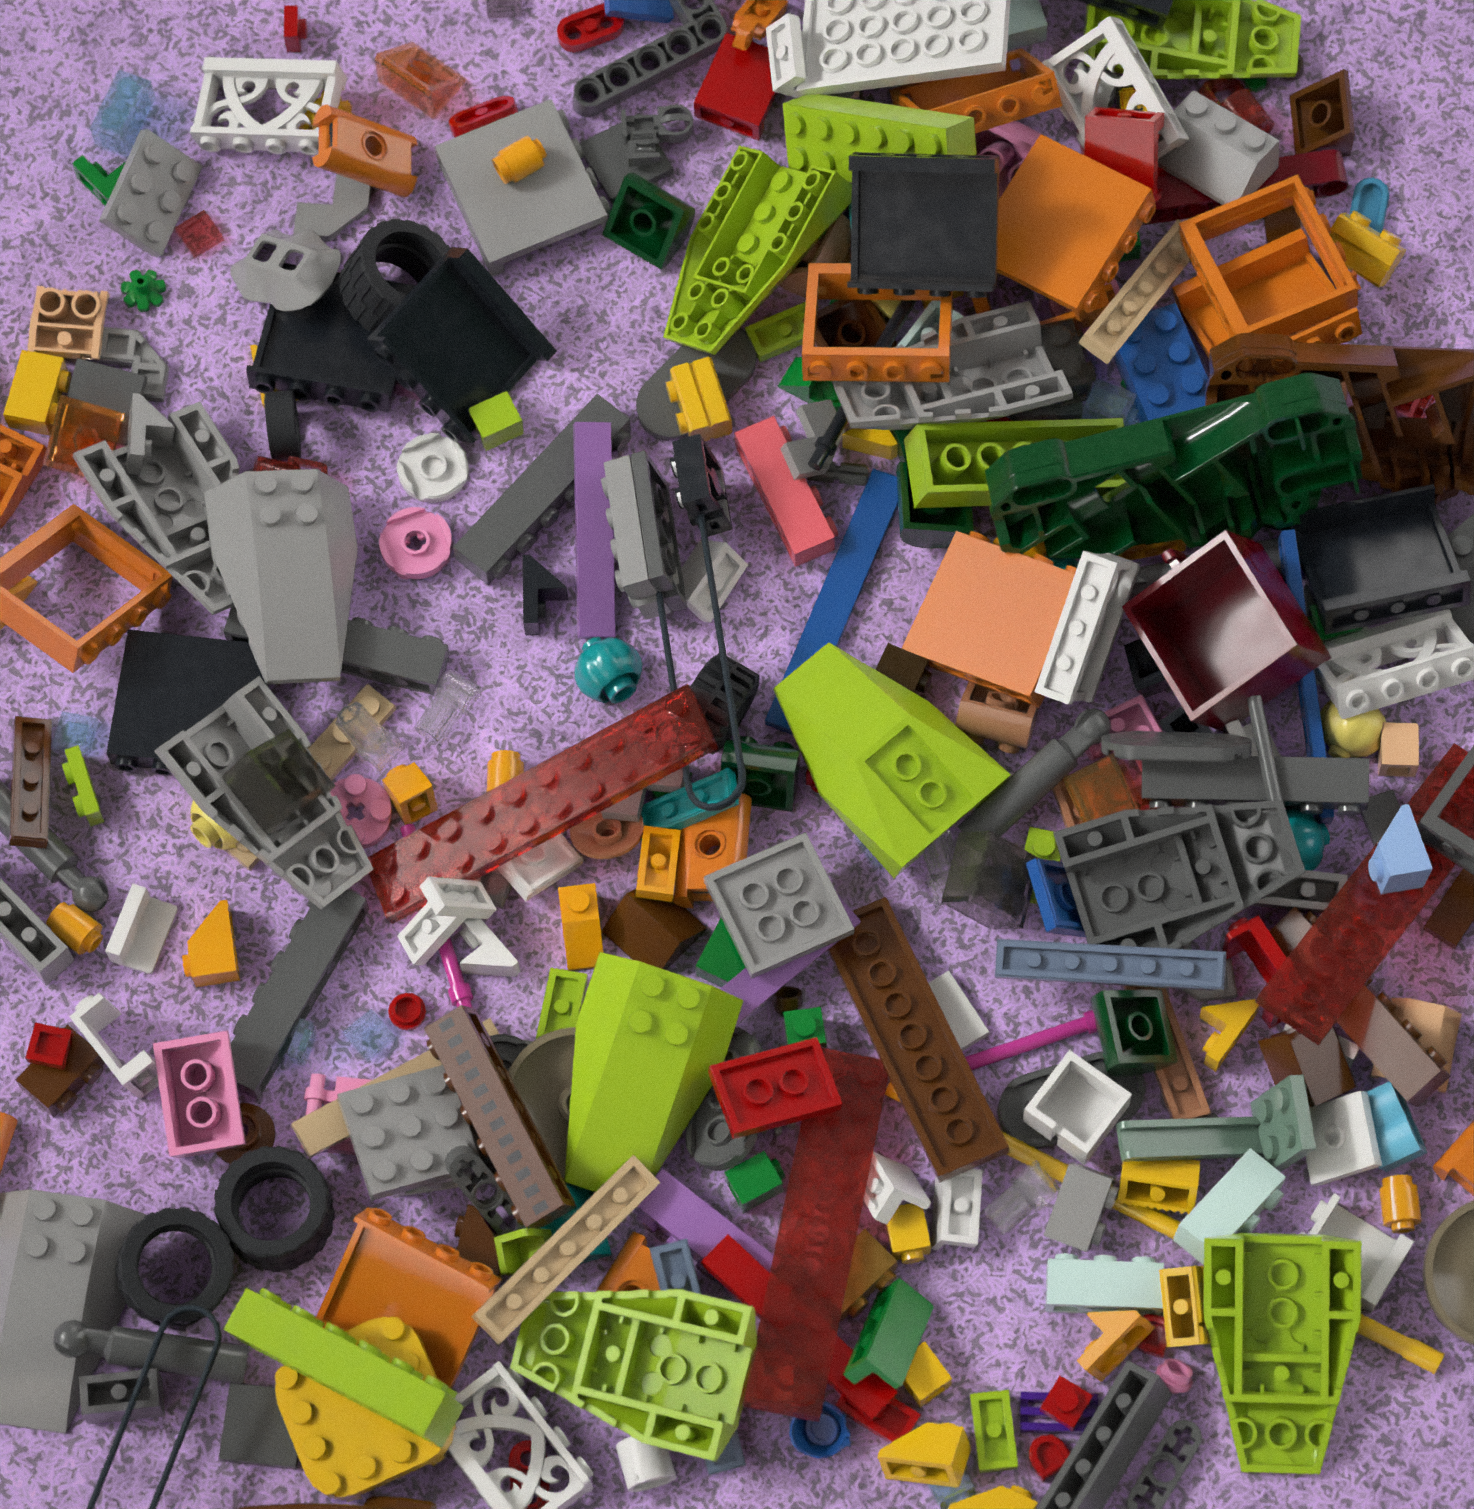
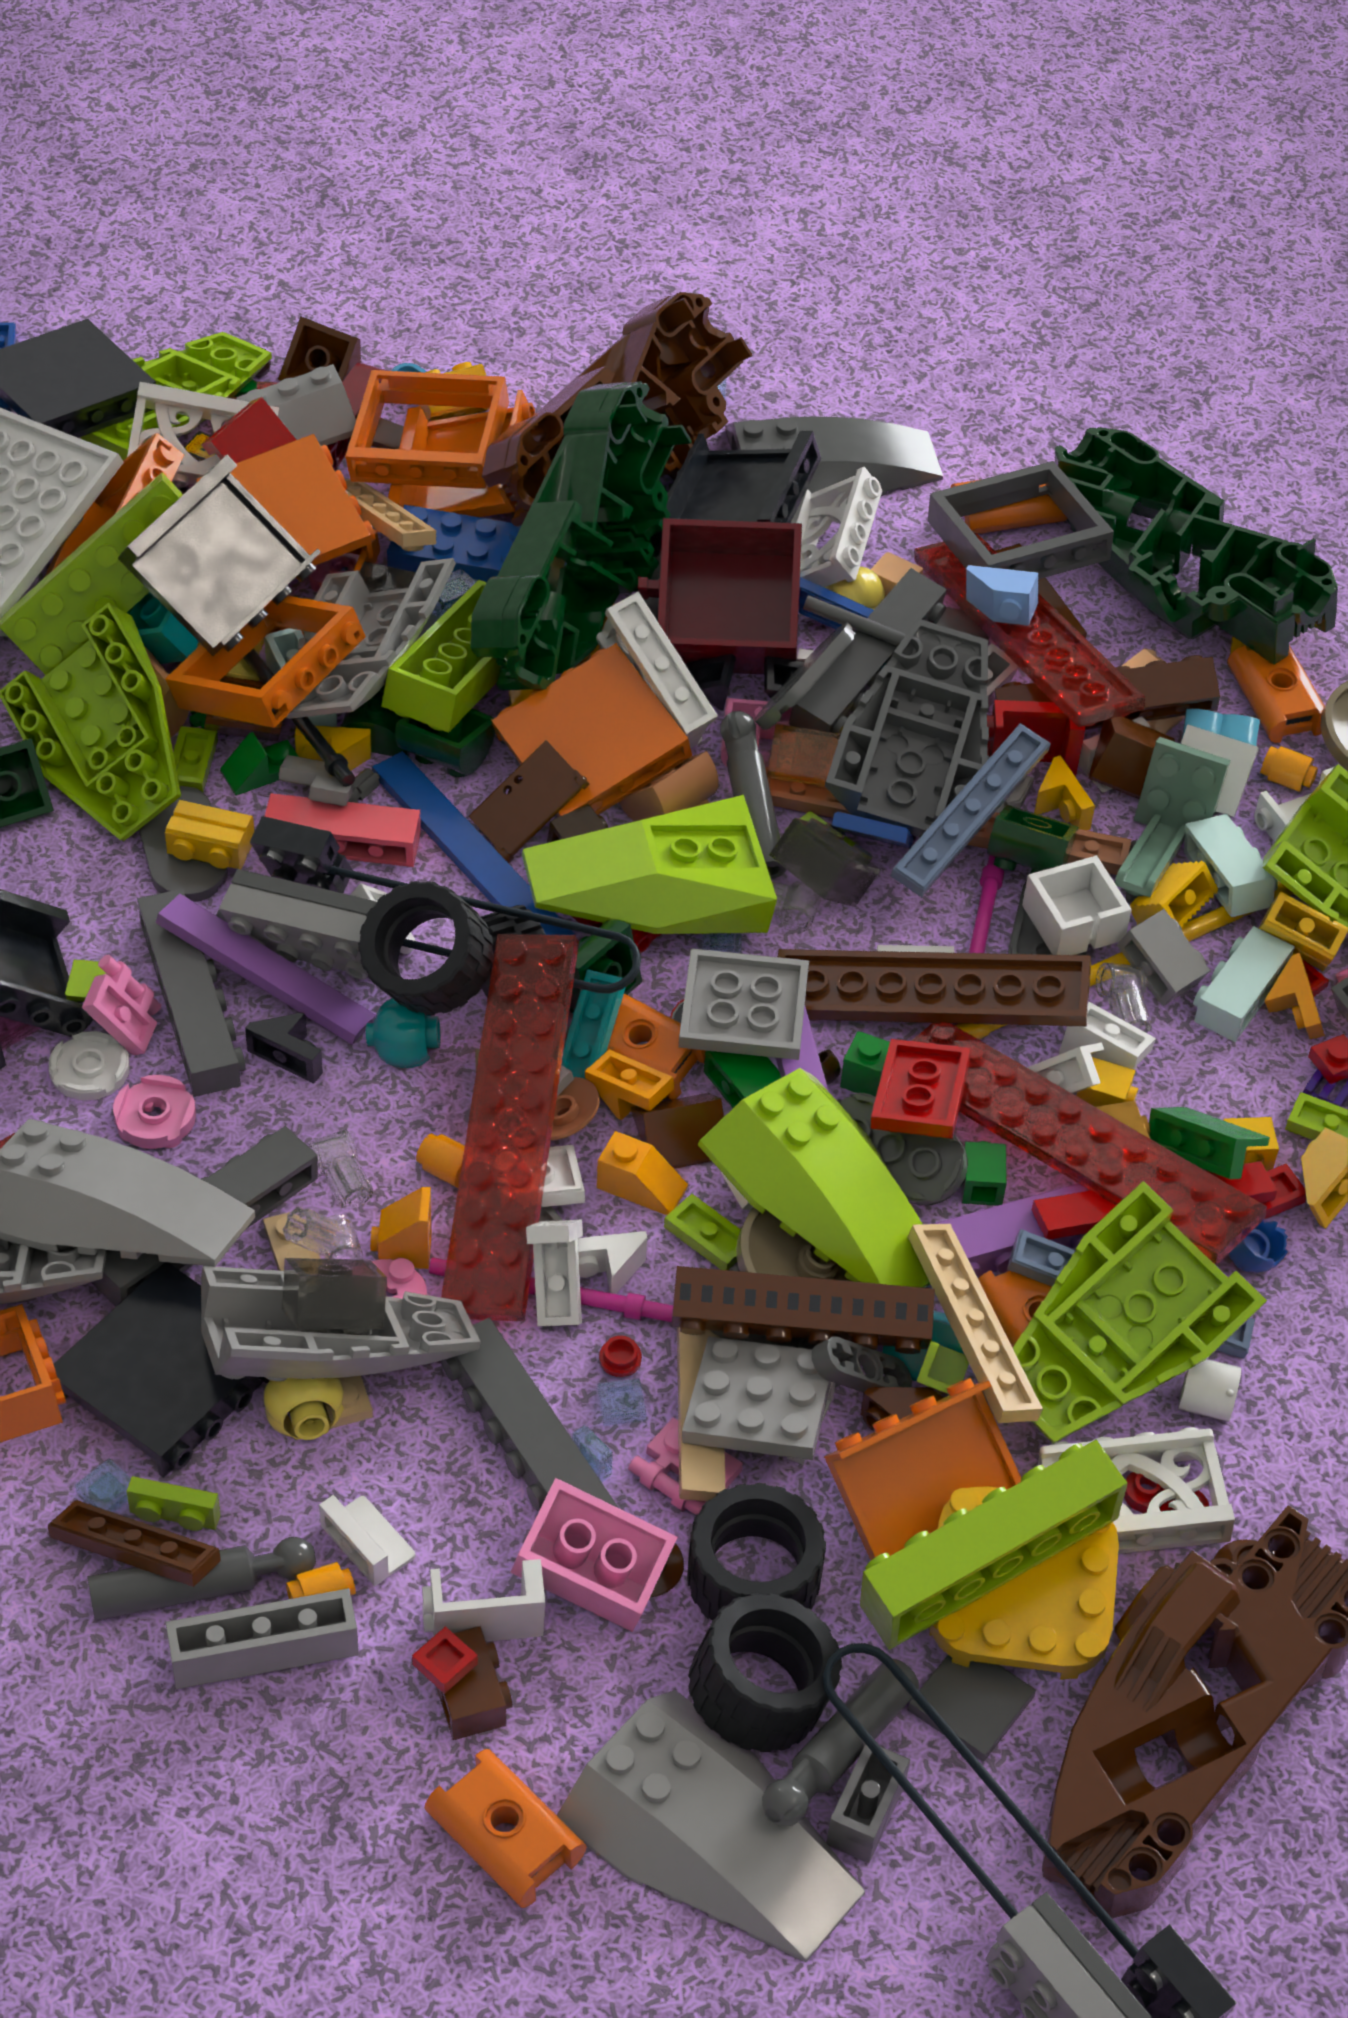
camera: 65 degrees left, 20 degrees down
(213, 949) = (438, 1478): light orange slope -> none
(476, 457) = (122, 1005): none -> bright pink plate
(614, 621) = (392, 922): none -> black tyre
(903, 617) = (530, 802): none -> reddish brown door

